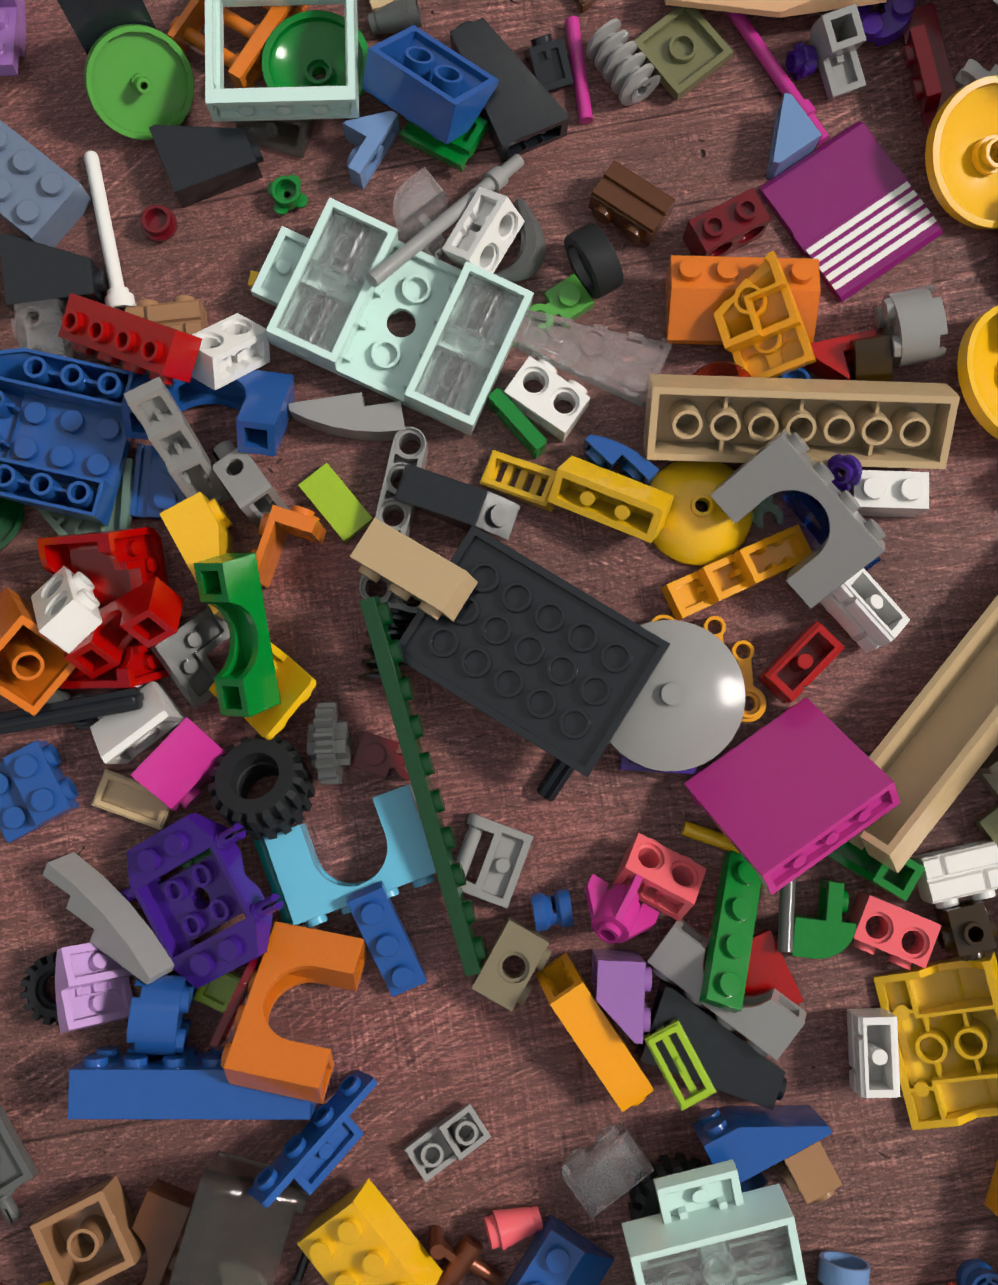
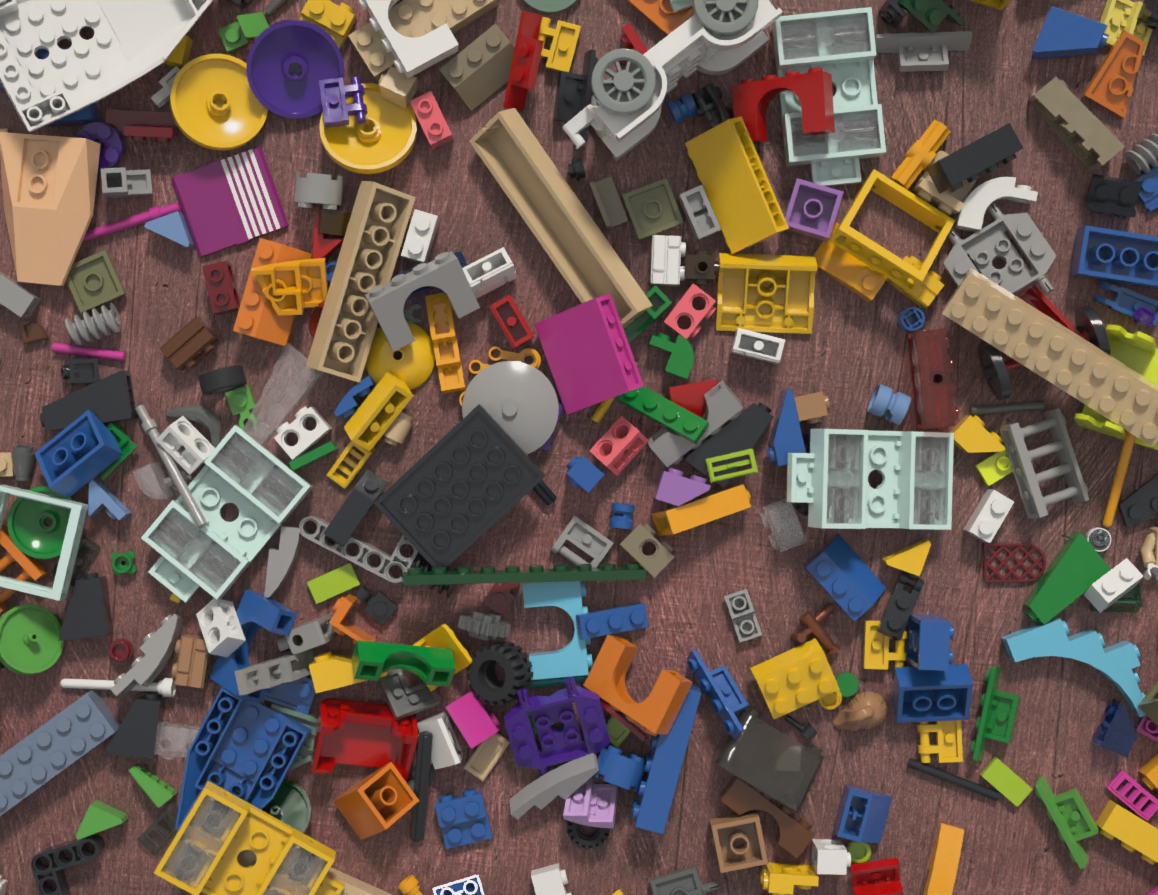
camera: 80 degrees left, 5 degrees up
(66, 609) = (359, 764): white brick -> none
(129, 338) = (198, 685): red brick -> none
(144, 613) = (382, 748): red arch -> none
(168, 272) = (157, 650): none -> light grey slope
(318, 578) = (378, 606): none -> black plate
(413, 571) = (392, 547): tan brick -> none
(511, 1226) = (801, 590): coral cone -> none
(590, 536) = (398, 429): none -> tan brick
(603, 834) = (583, 473): none -> blue brick
(617, 911) = (632, 477): dark pink brick -> none
(786, 918) = (660, 374): dark grey bar -> none
(801, 61) = (122, 206): dark purple plate -> none
(852, 468) = (400, 258): dark purple plate -> none

